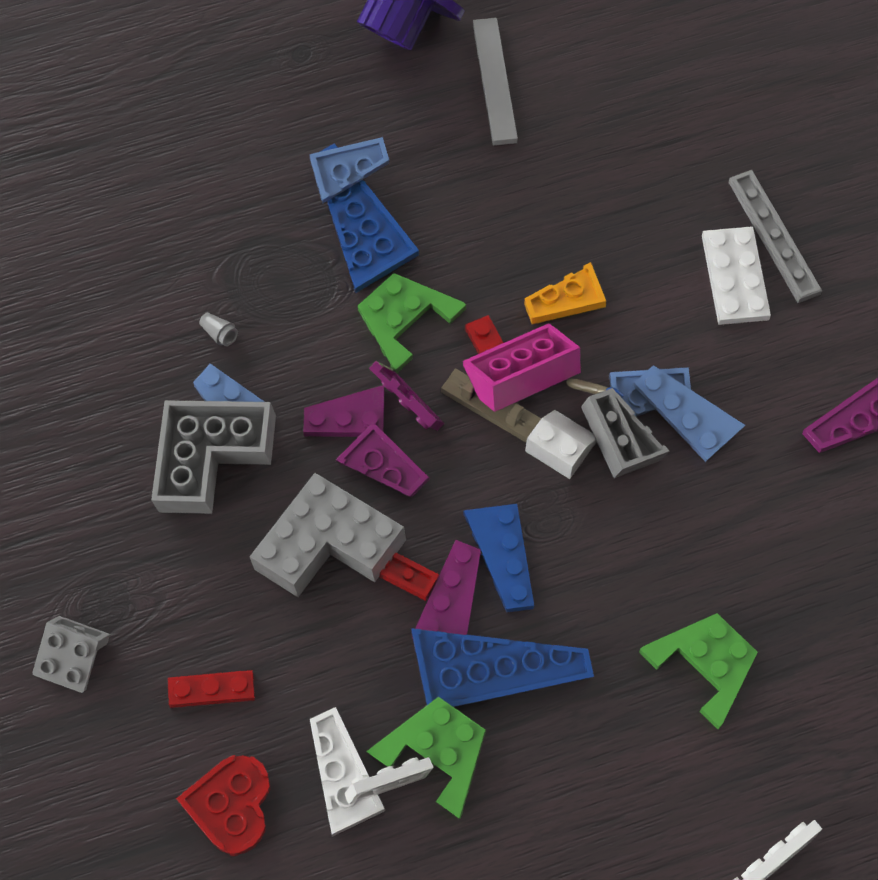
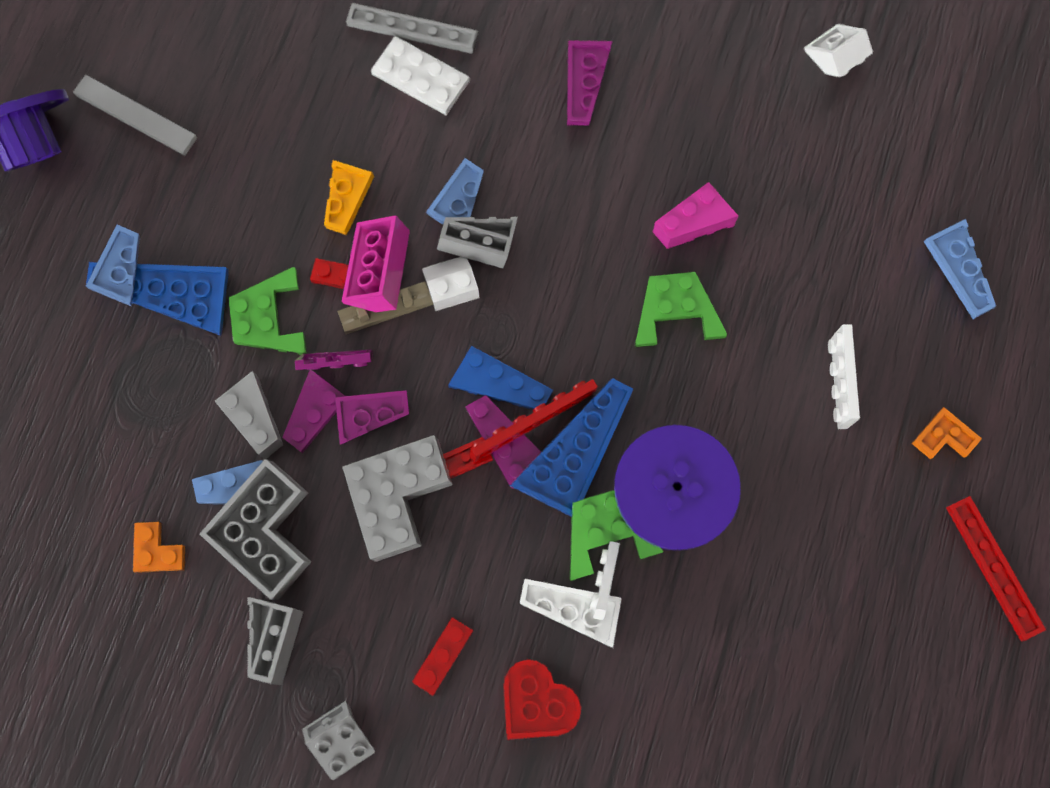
camera: 50 degrees left, 10 degrees up
(117, 530) = (271, 640): none -> light grey wedge
(120, 381) = (150, 555): none -> orange plate
(220, 330) = (172, 452): light grey cone -> none
(302, 368) = (251, 415): none -> light grey wedge
(498, 609) = (525, 424): none -> red plate
(523, 774) = (677, 487): none -> dark purple piece
(589, 387) = (426, 232): dark tan piece -> none
(692, 416) = (500, 183): medium blue wing -> none
(809, 610) = (695, 216): none -> dark pink wedge

